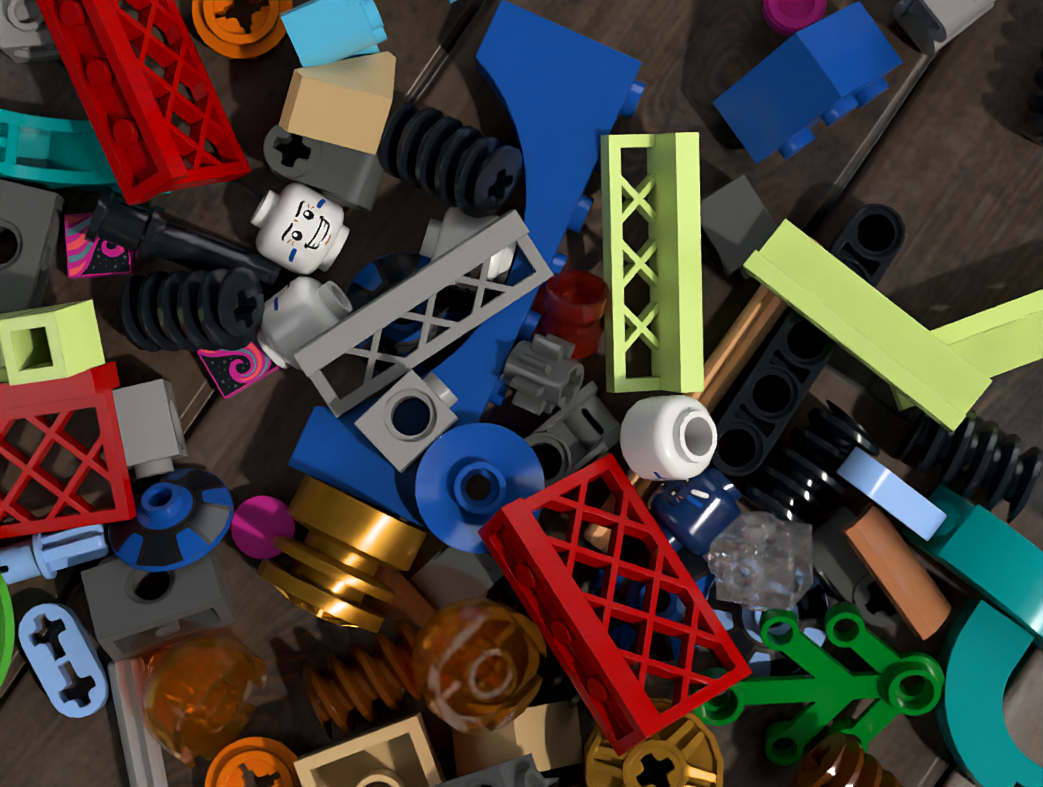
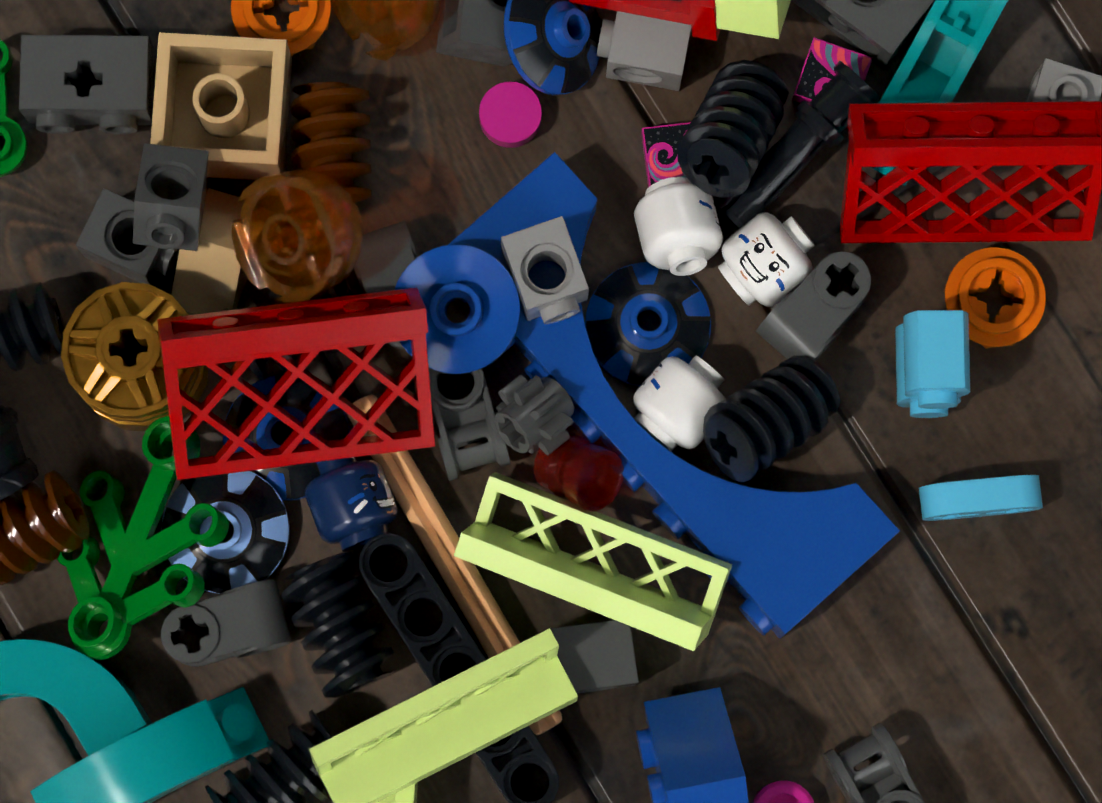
camera: 110 degrees right, 5 degrees down
(340, 555) = (443, 152): pearl gold wheel -> none
(342, 101) = (865, 341): tan slope -> none
(410, 293) = (659, 320): light grey fence -> none
(668, 438) = (424, 500): white head -> none
(762, 562) = (272, 536): clear brick -> none
(891, 493) = (280, 681): light blue beam -> none
(896, 570) = (209, 659): nougat slope -> none

